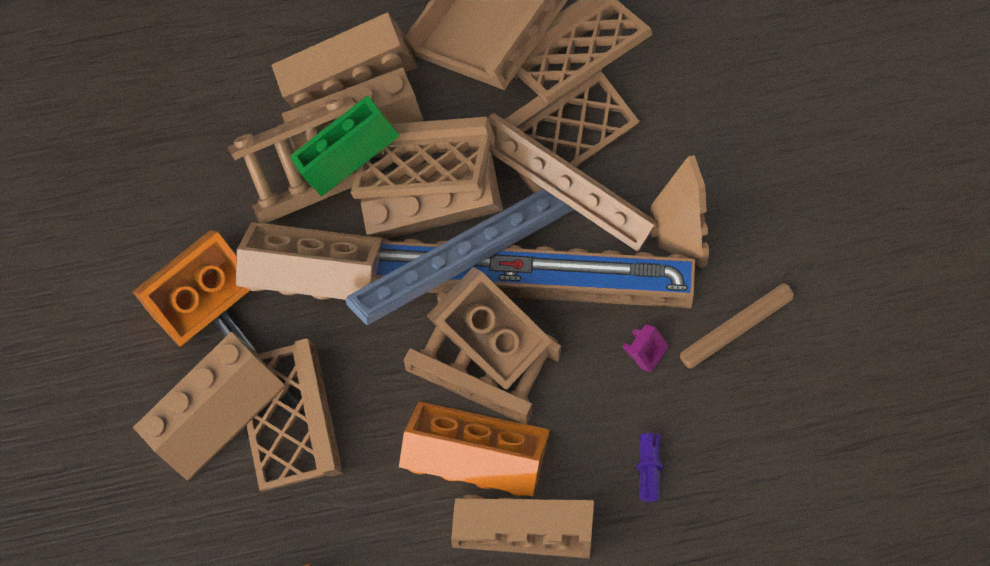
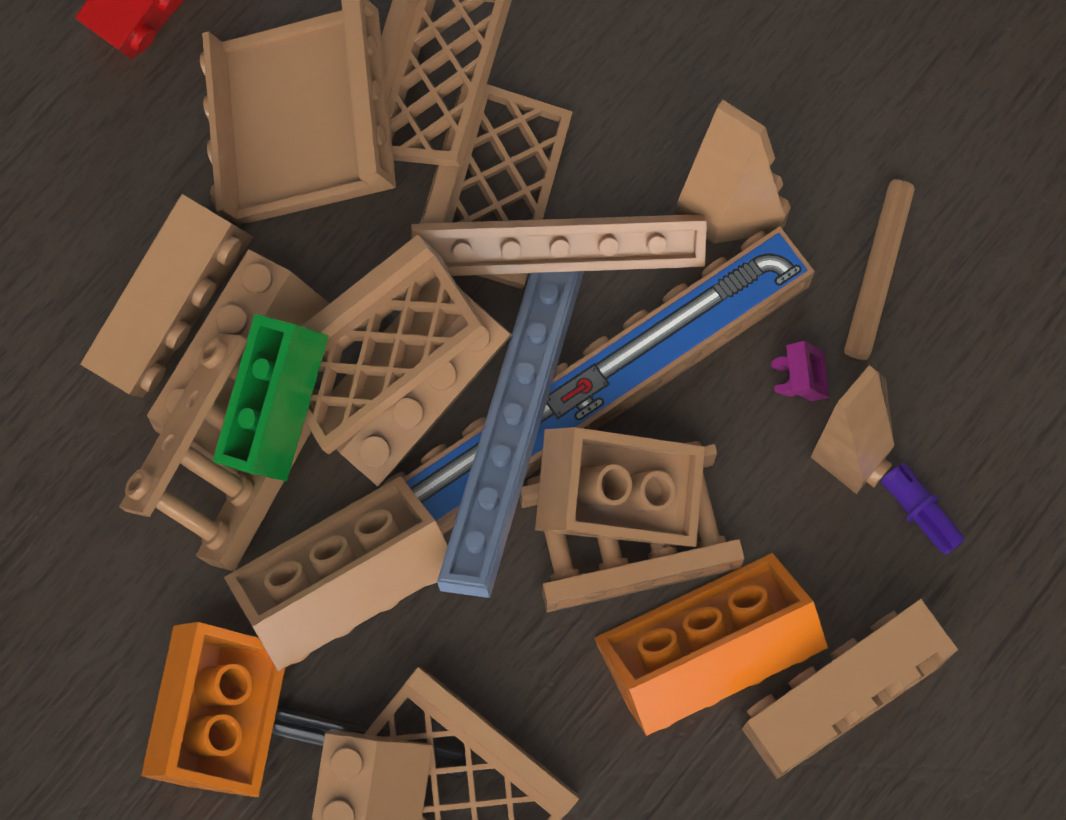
camera: 45 degrees left, 5 degrees up
(645, 390) = (858, 434): none -> medium nougat wedge

